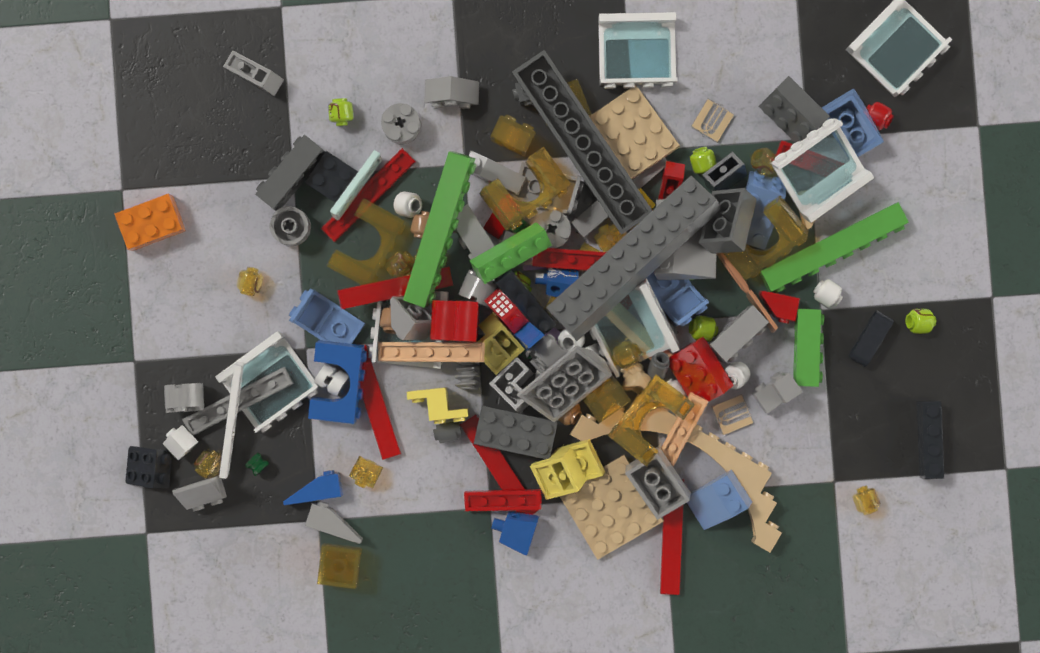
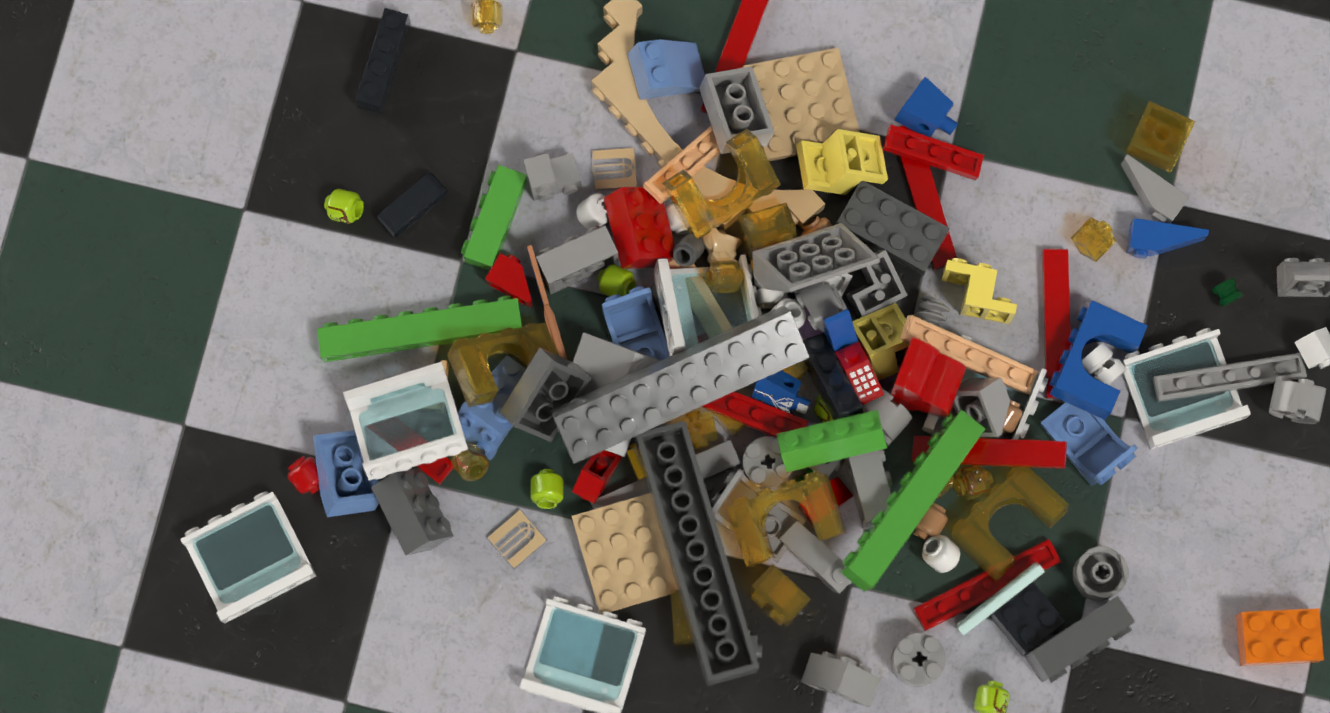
camera: 165 degrees left, 10 degrees down
(208, 464) = (1289, 311): clear yellow head -> none
(231, 419) = (1244, 354): white tile -> none
(249, 281) = (1172, 521): clear yellow head -> none
(447, 432) = (977, 254): dark grey brick -> none
(725, 173) = (526, 461): black brick -> none
(828, 293) = (446, 275): white head -> none

